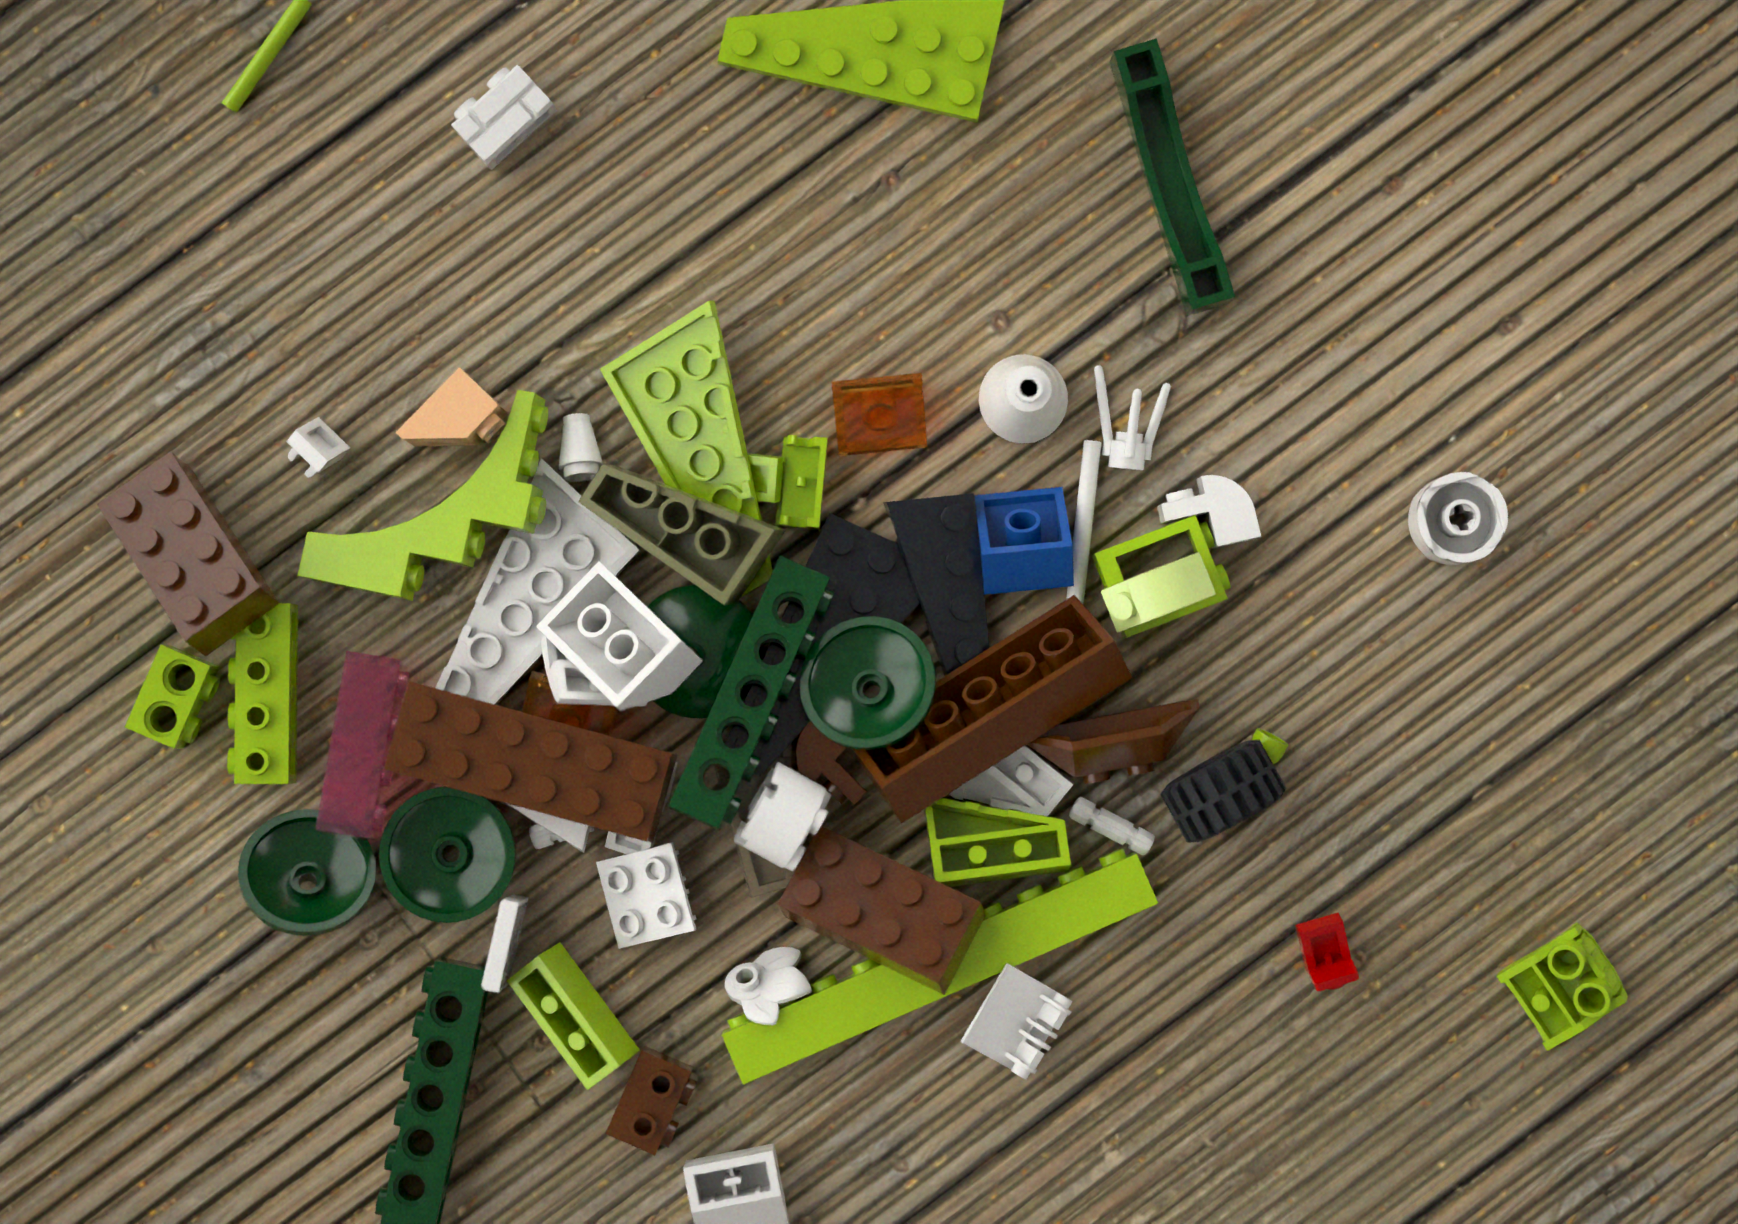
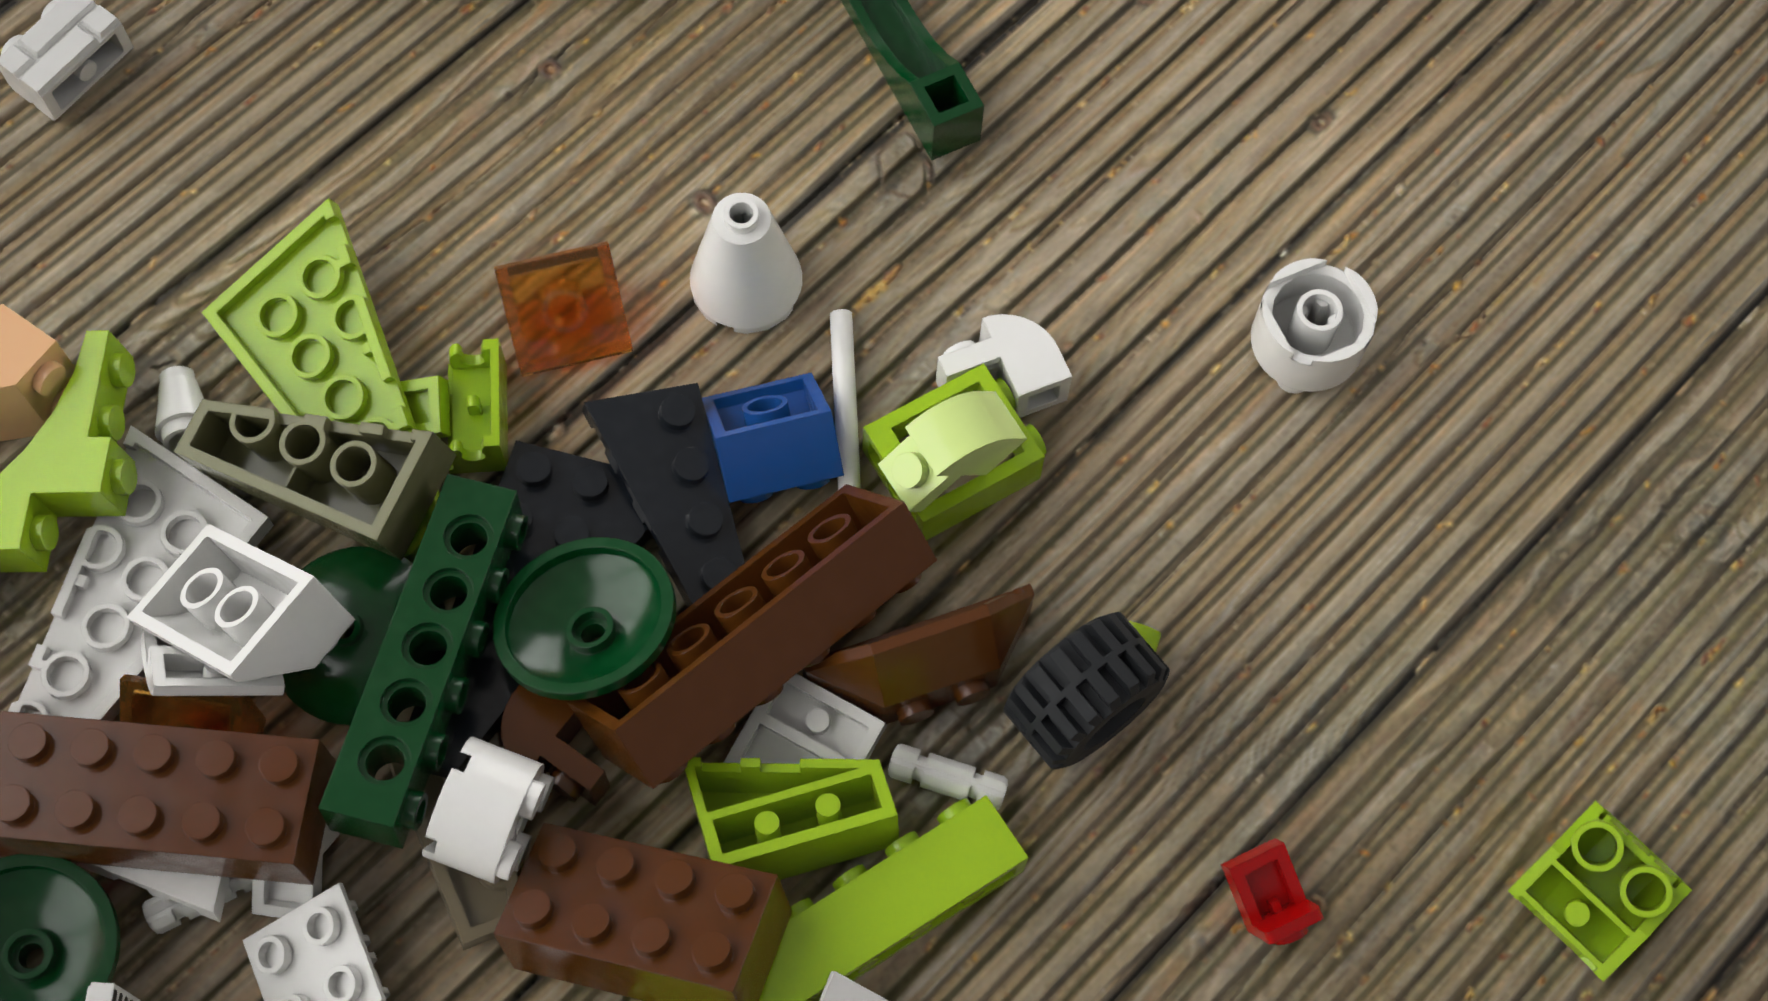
camera: 10 degrees left, 20 degrees down
(1128, 449) = (885, 313): white plant -> none

